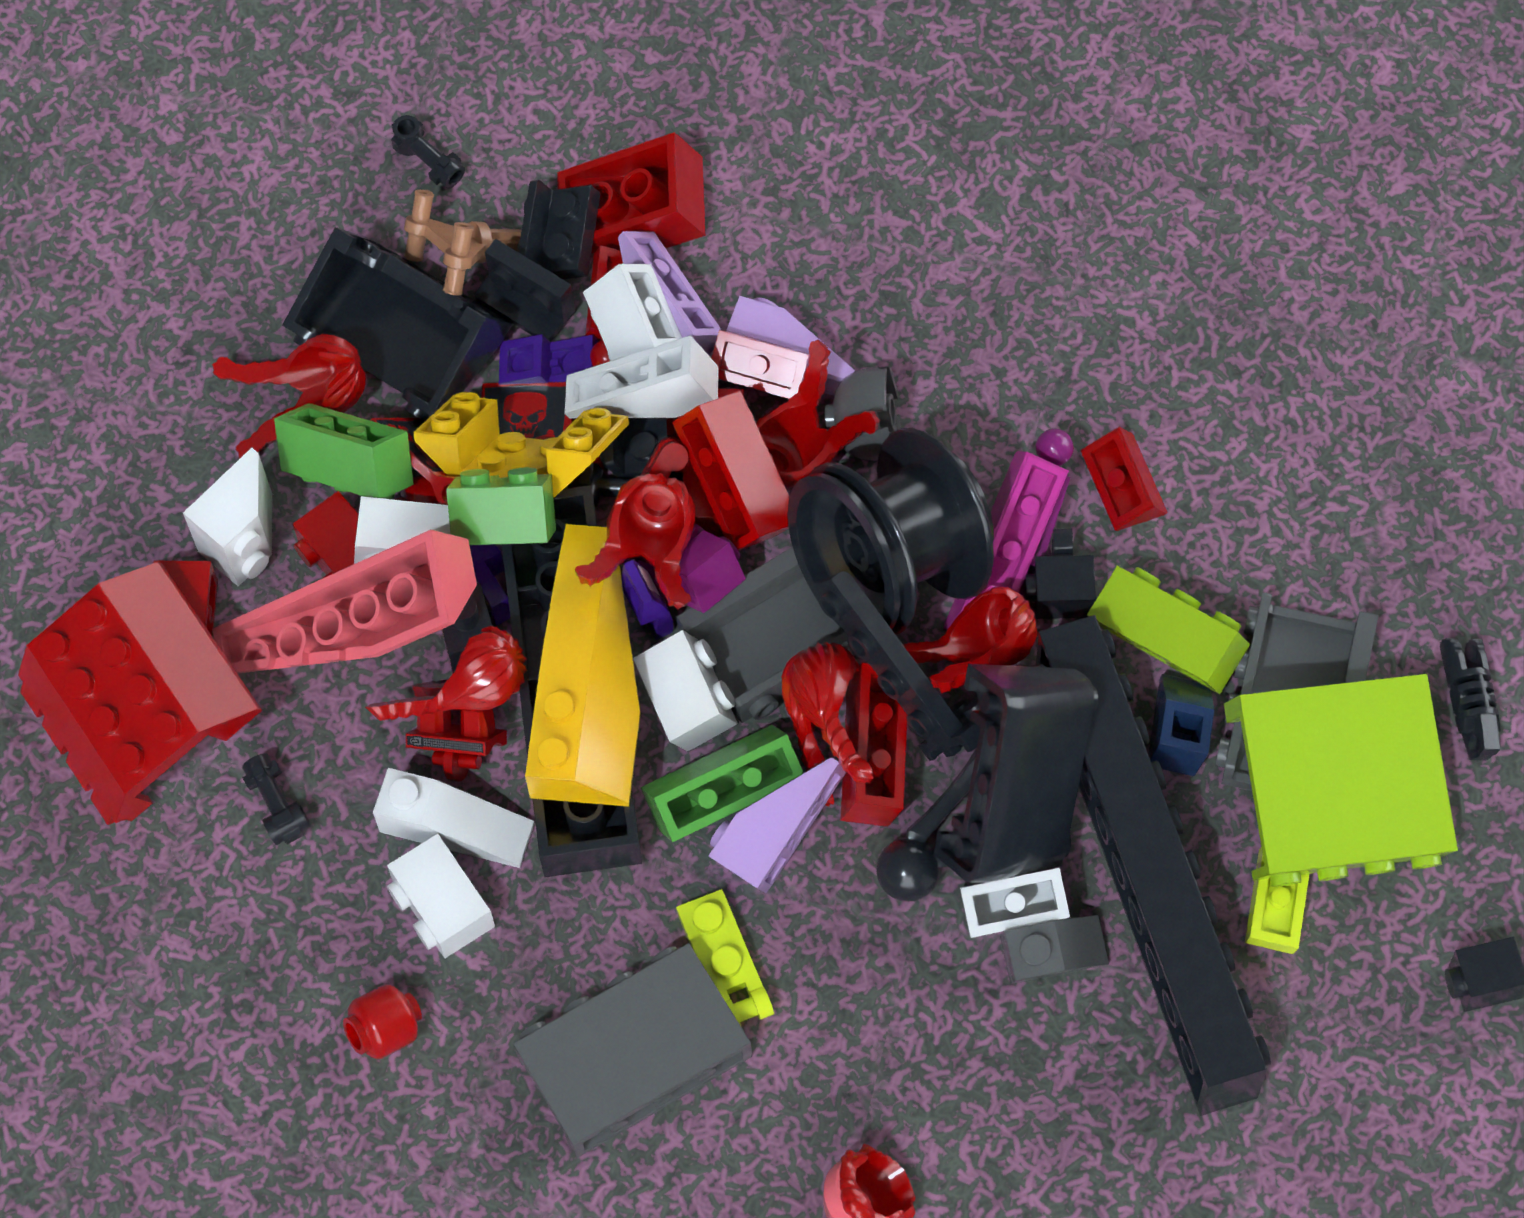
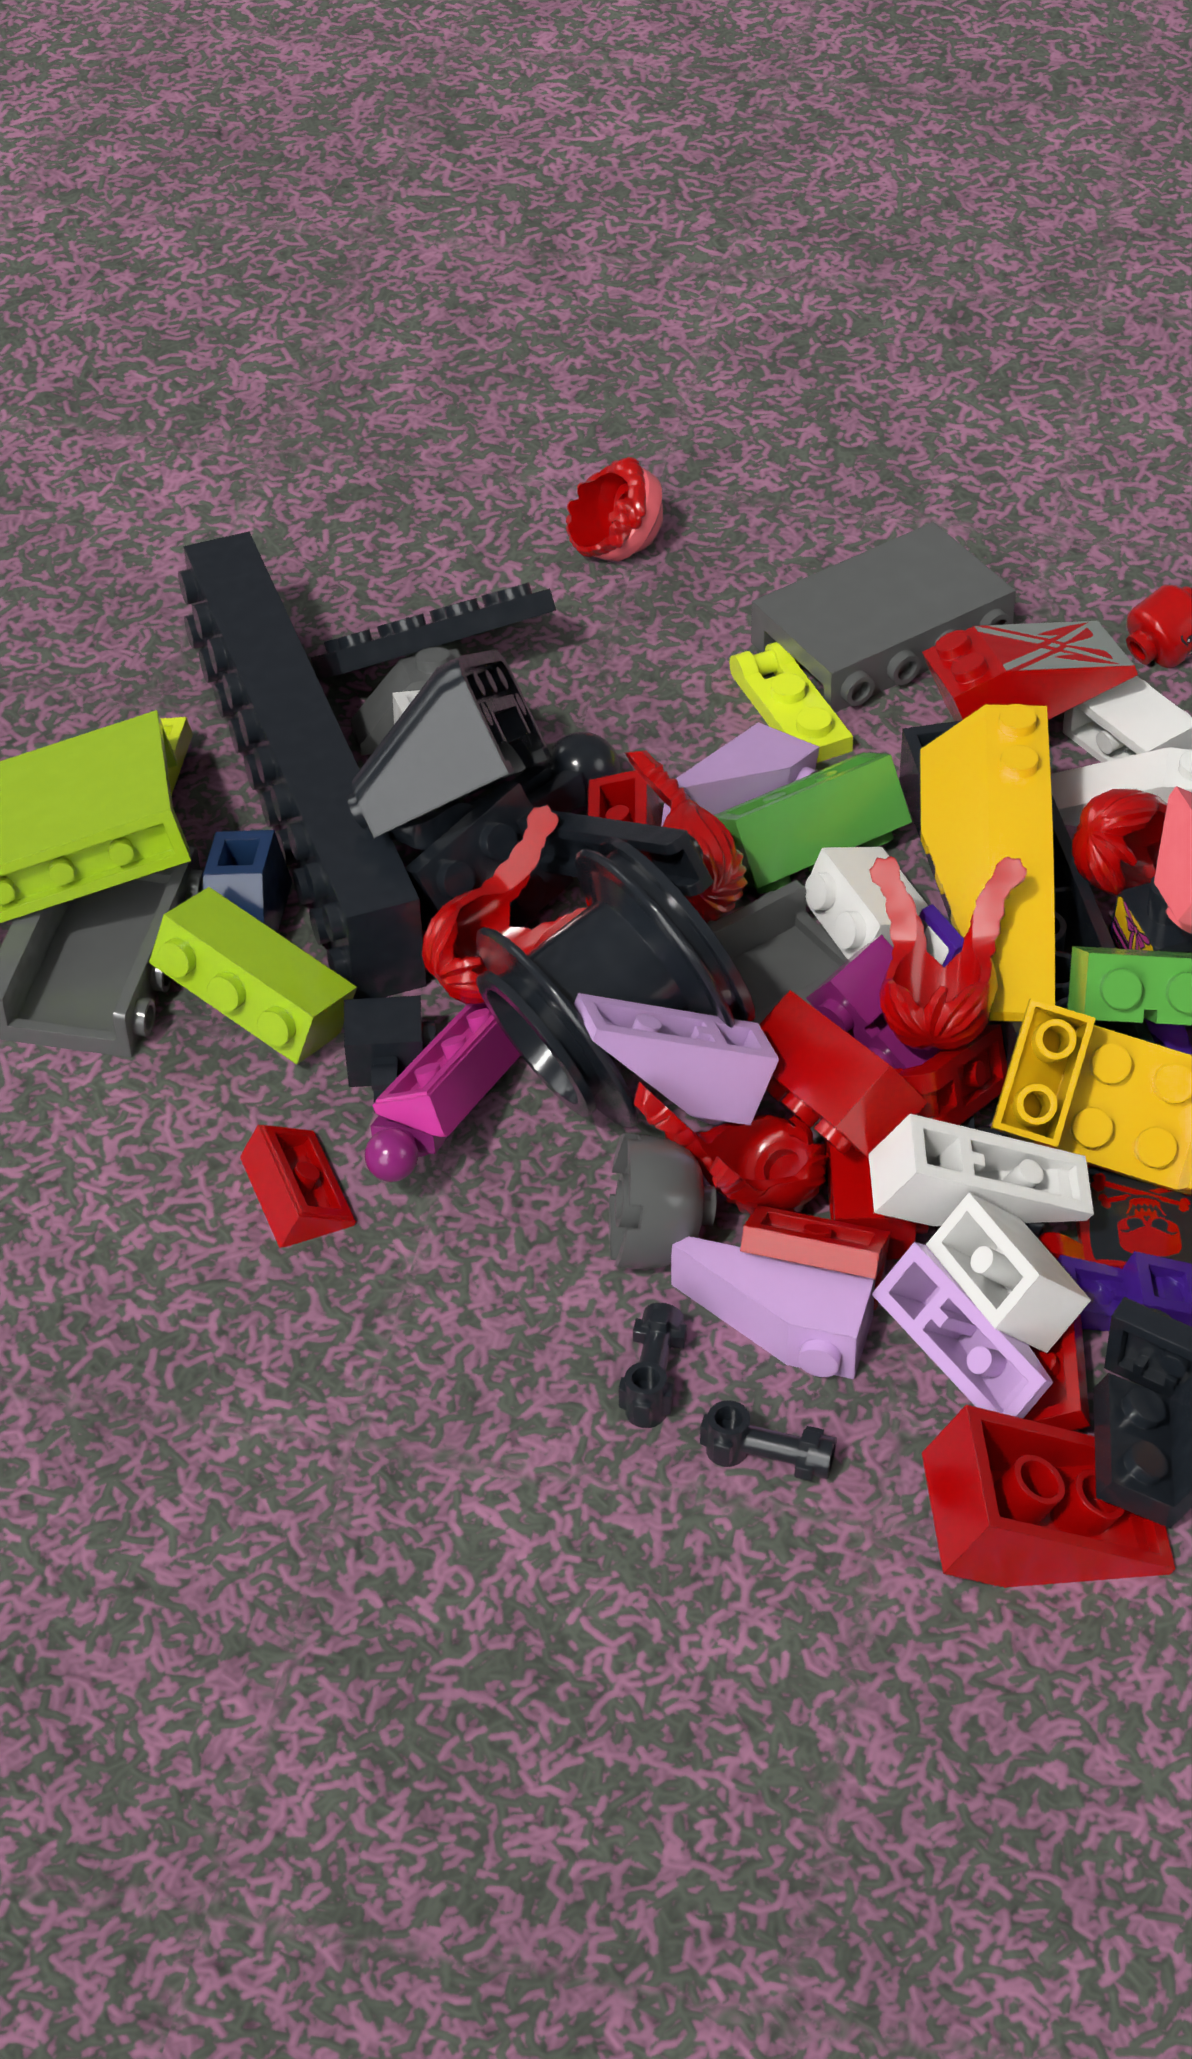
camera: 175 degrees right, 20 degrees down
(520, 923) = (1026, 665): none -> red slope
(825, 257) = (730, 1438): none -> black bar
(867, 449) = (686, 1055): none -> lavender slope
(880, 294) = (645, 1388): none -> black bar
(1037, 1028) = (447, 625): none -> black plate

